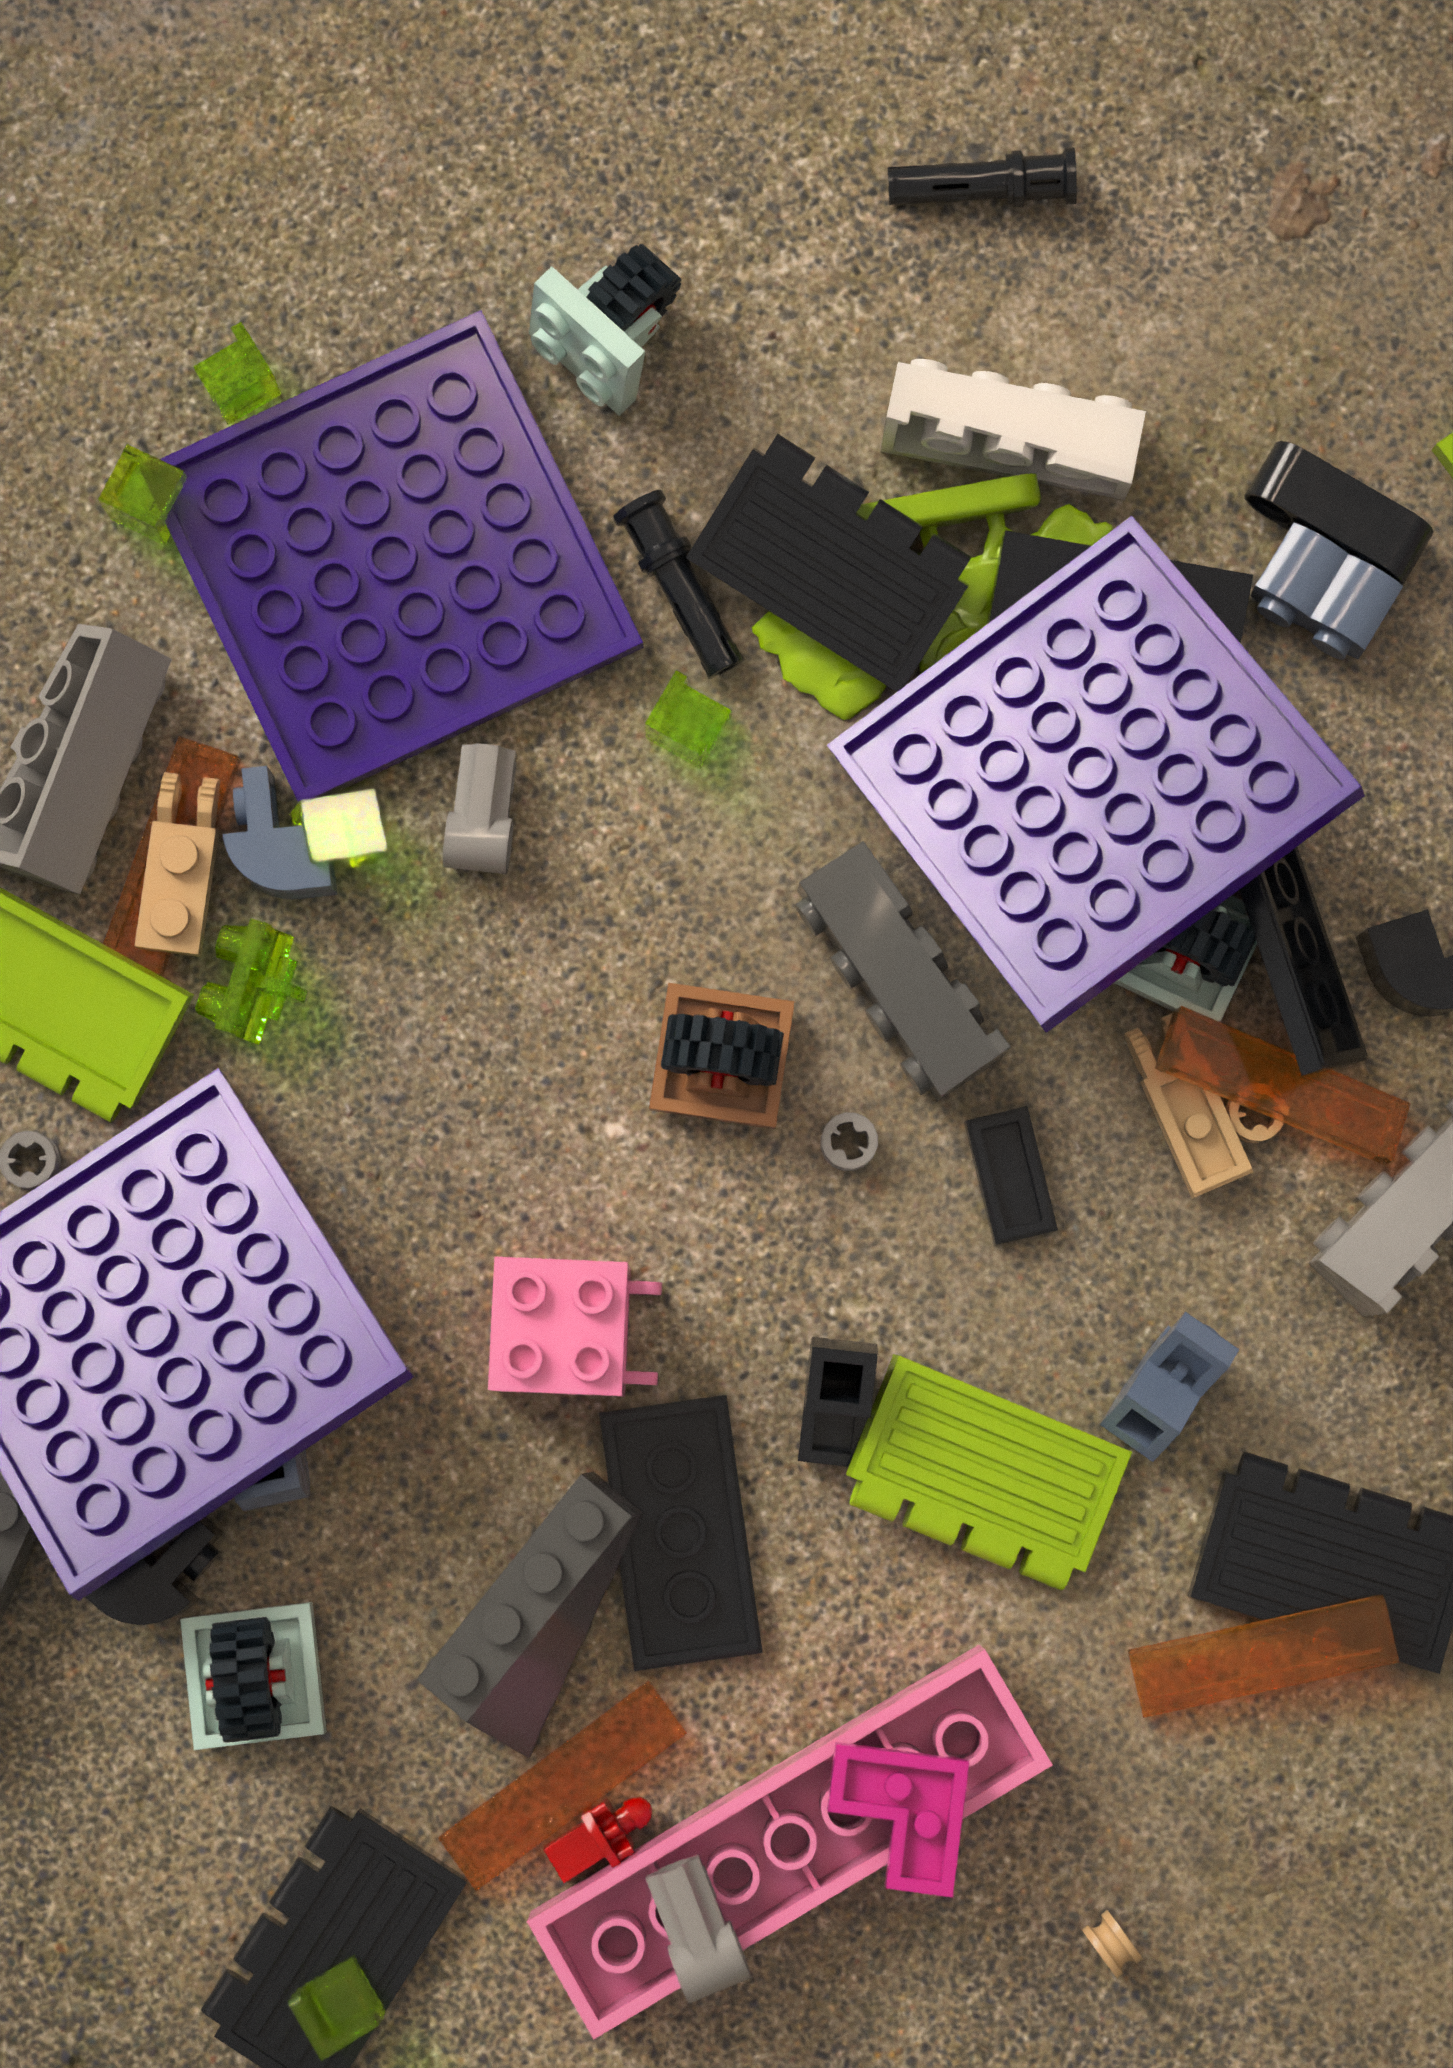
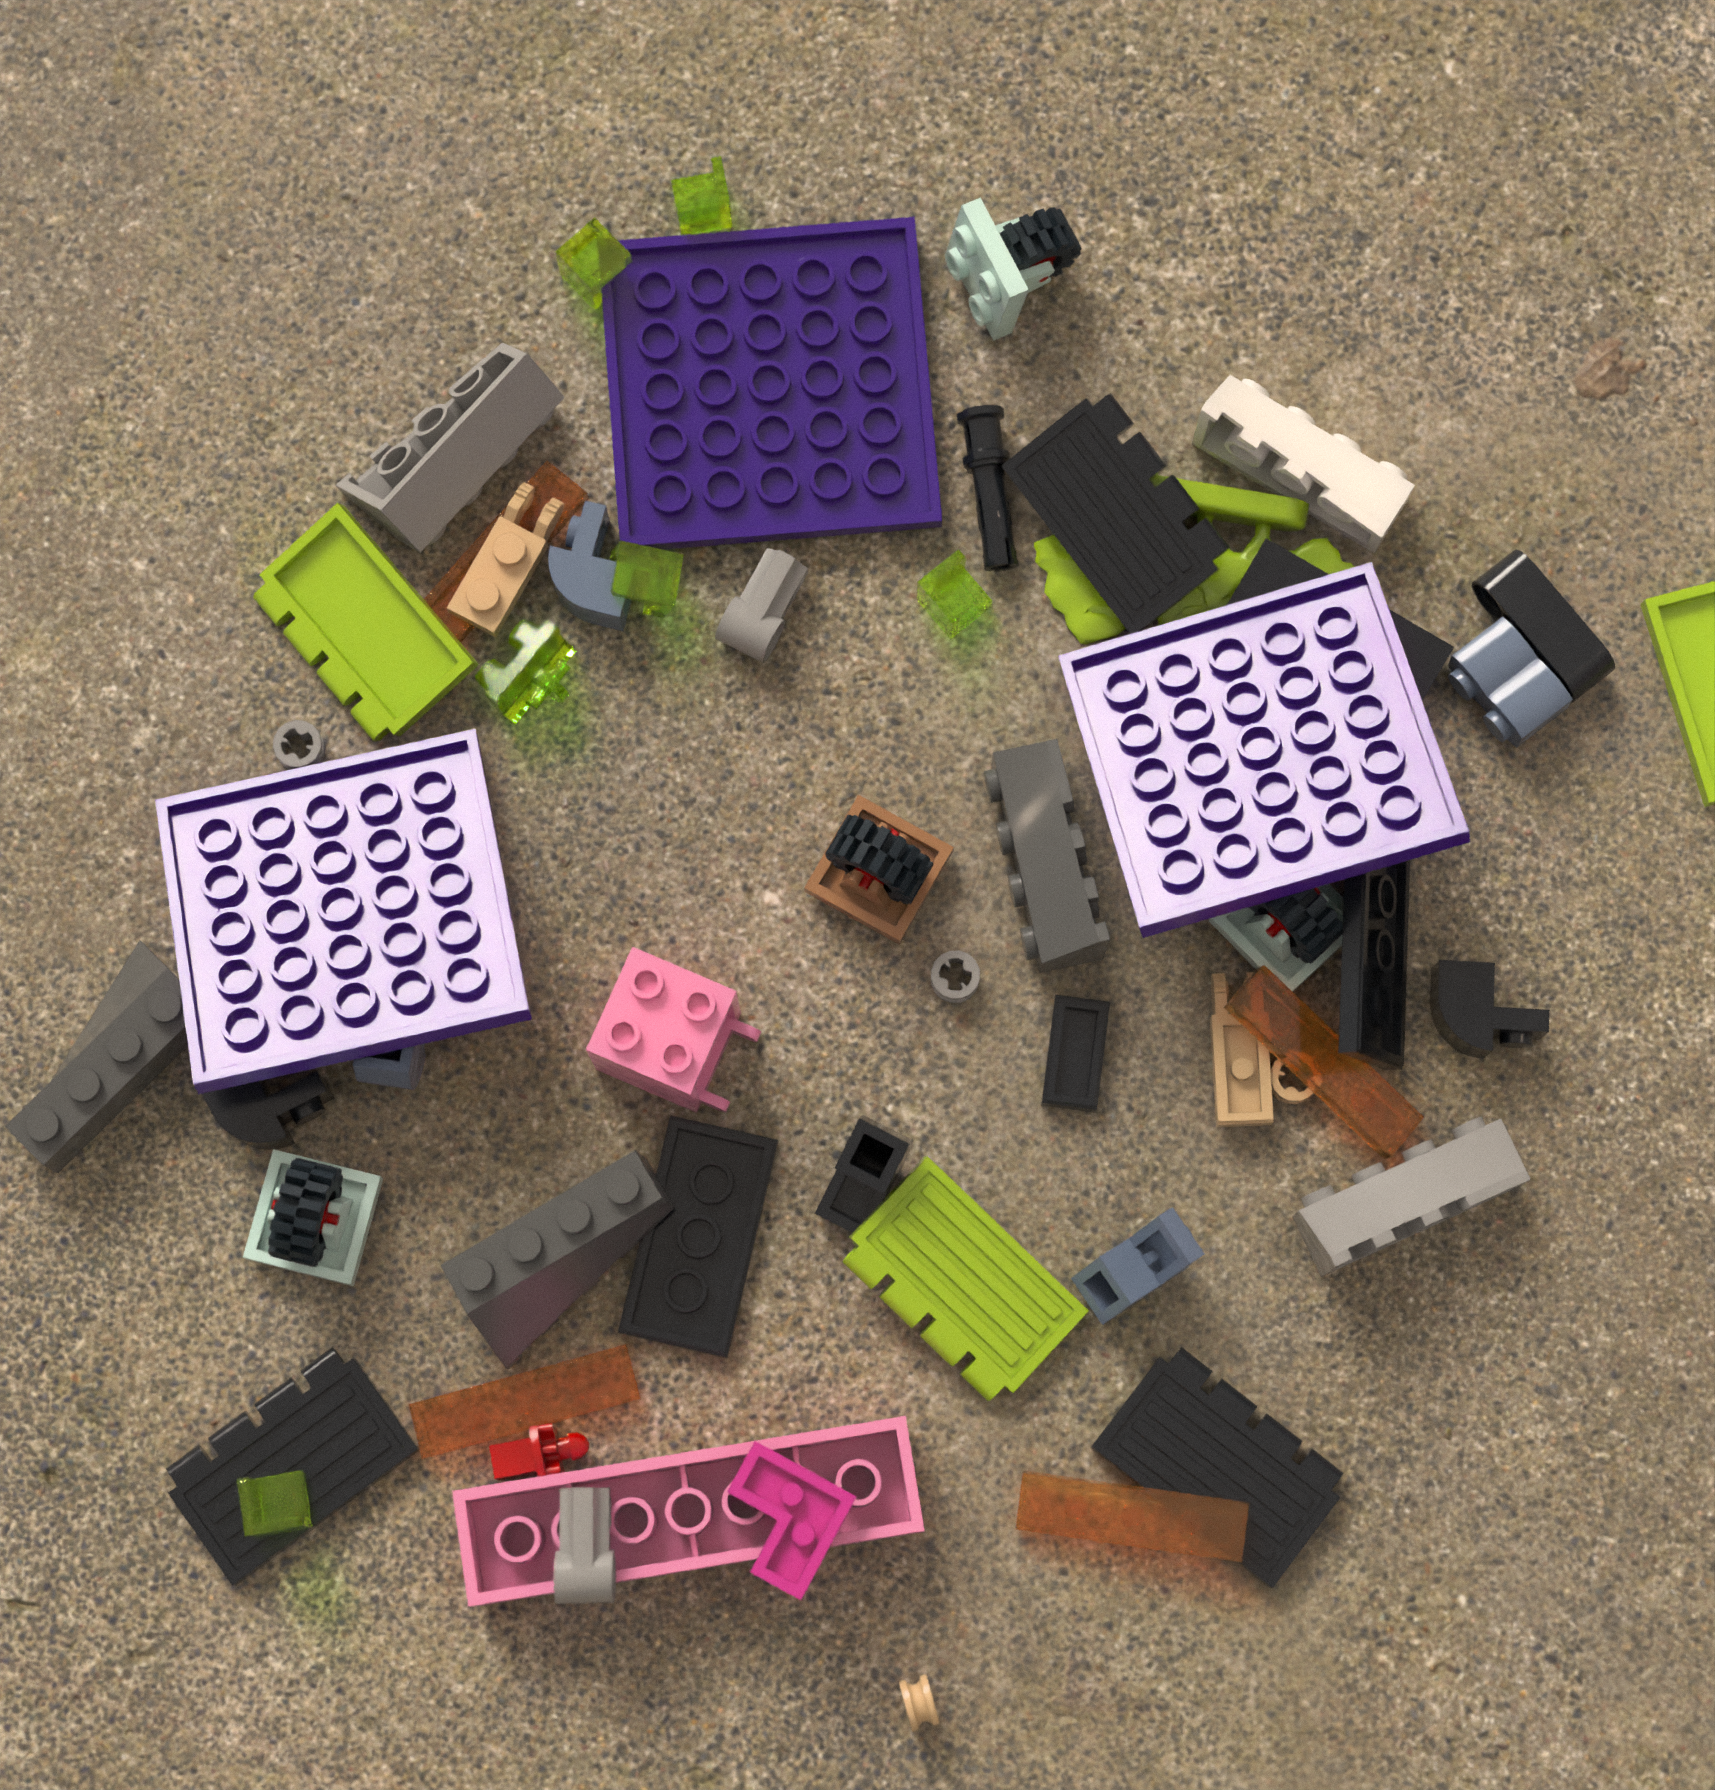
camera: 25 degrees right, 5 degrees down
(1014, 178) = (1380, 267): black pin -> none

